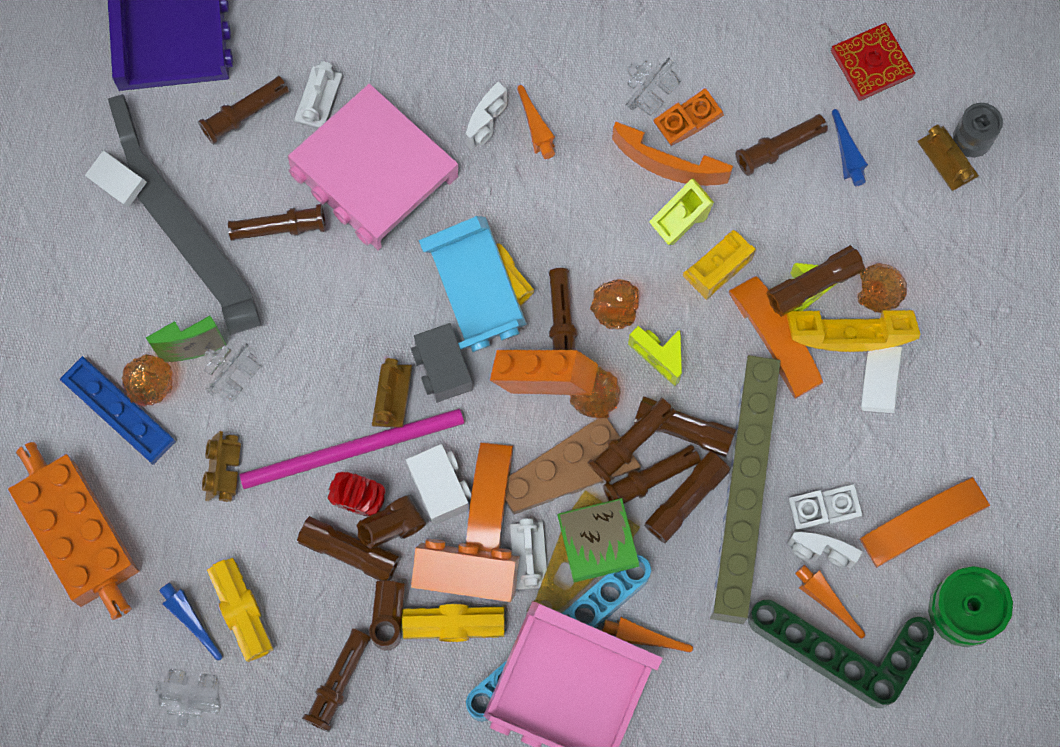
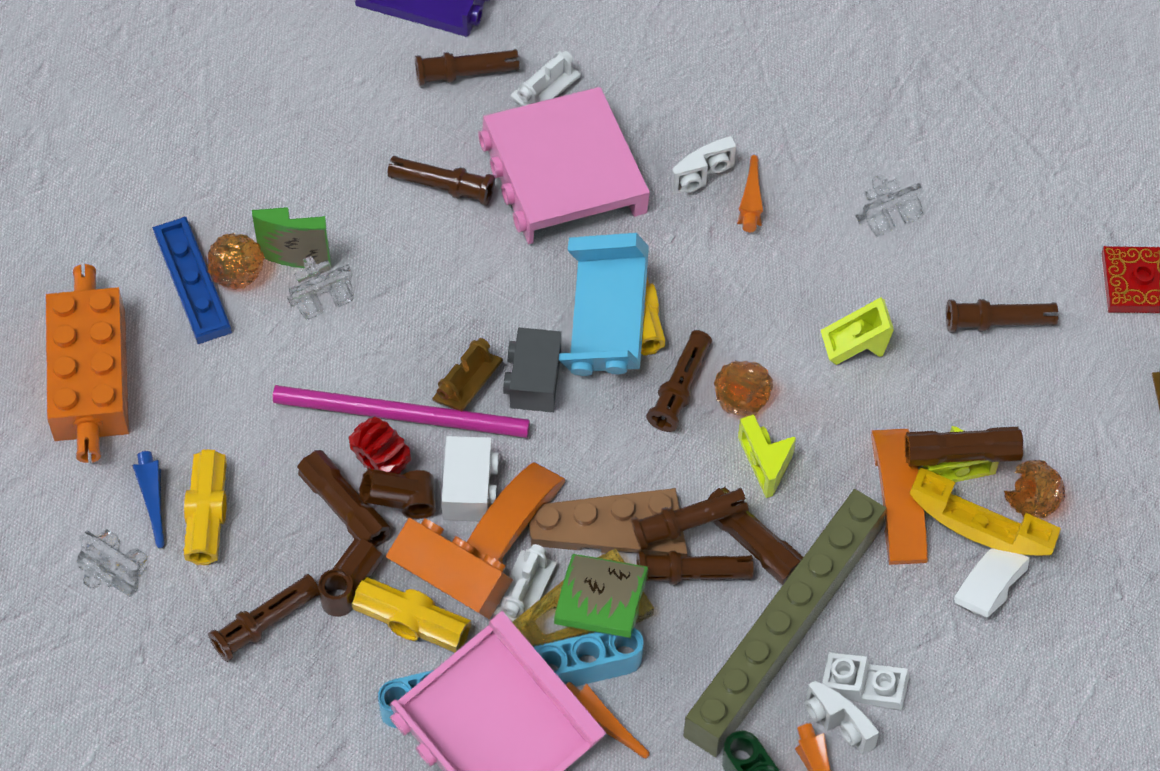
camera: 25 degrees right, 15 degrees down
(115, 178) = (307, 74): white slope -> none
(184, 230) = (353, 180): dark grey piece -> none
(217, 479) = (270, 359): pearl gold hinge -> none
(544, 372) = (631, 412): orange brick -> none
(603, 399) = (675, 459): clear orange piece -> none
(668, 166) = (904, 308): orange slope -> none
(686, 498) = (696, 612): reddish brown axle -> none
(689, 118) = (910, 255): orange slope -> none
(720, 264) = (874, 402): yellow hinge -> none
(852, 160) = (1070, 359): blue piece -> none
(924, 521) = (968, 738): orange slope -> none

